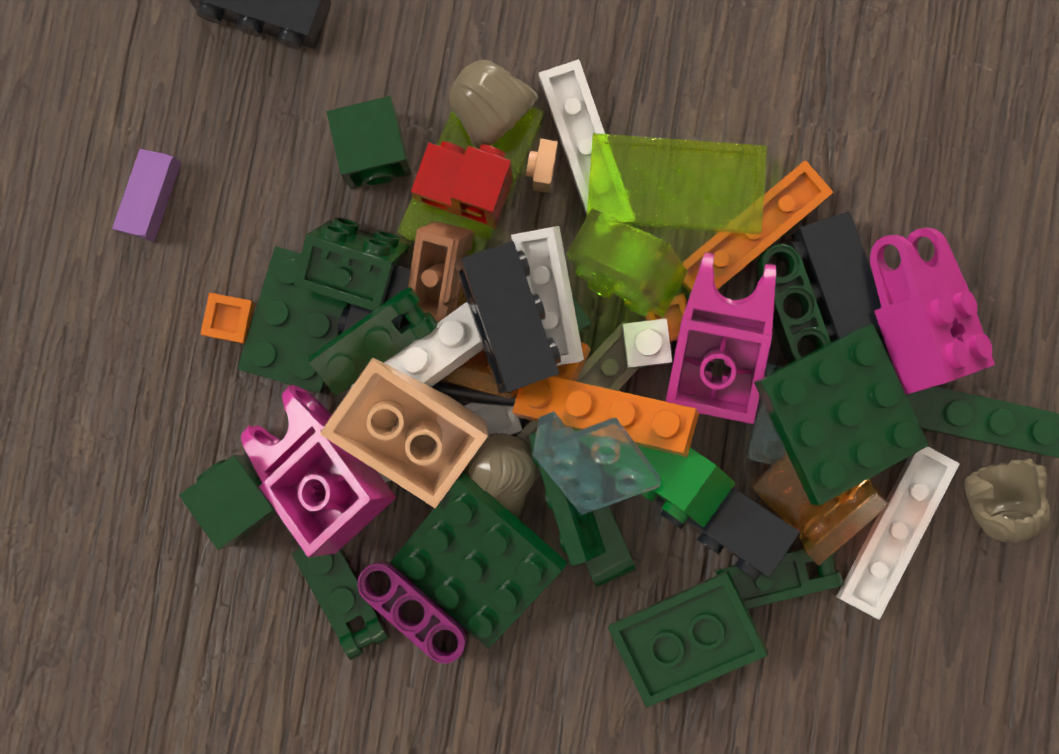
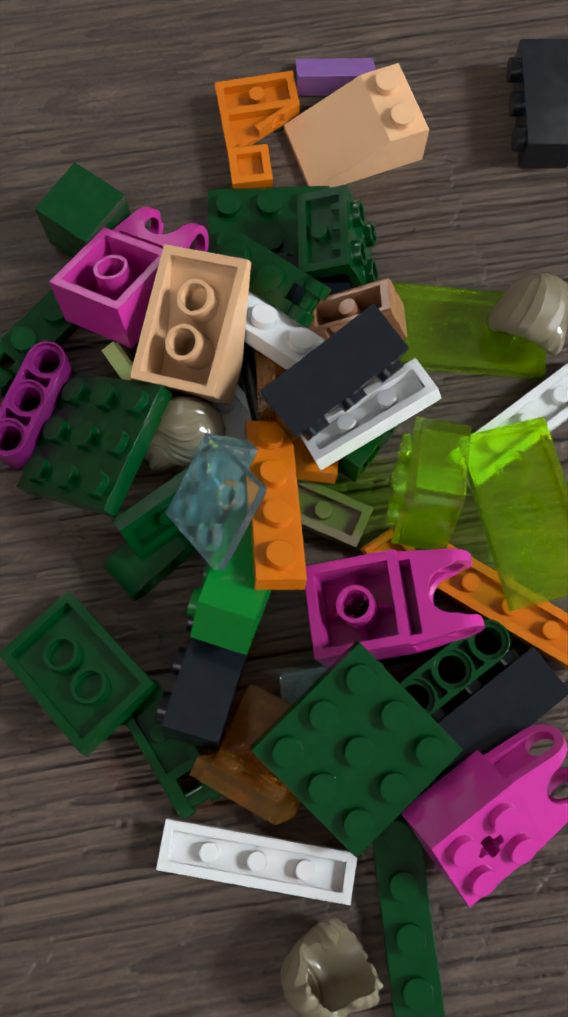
camera: 65 degrees right, 10 degrees down
(158, 290) = (255, 106): none -> orange wing
(224, 197) = (359, 130): none -> light nougat slope
(369, 143) = (453, 227): dark green head -> none
(404, 509) = (120, 359): none -> yellowish green tile
(464, 181) = (450, 316): red brick -> none
(542, 164) = (494, 387): light nougat plate -> none
(647, 343) = (359, 532): white plate -> none

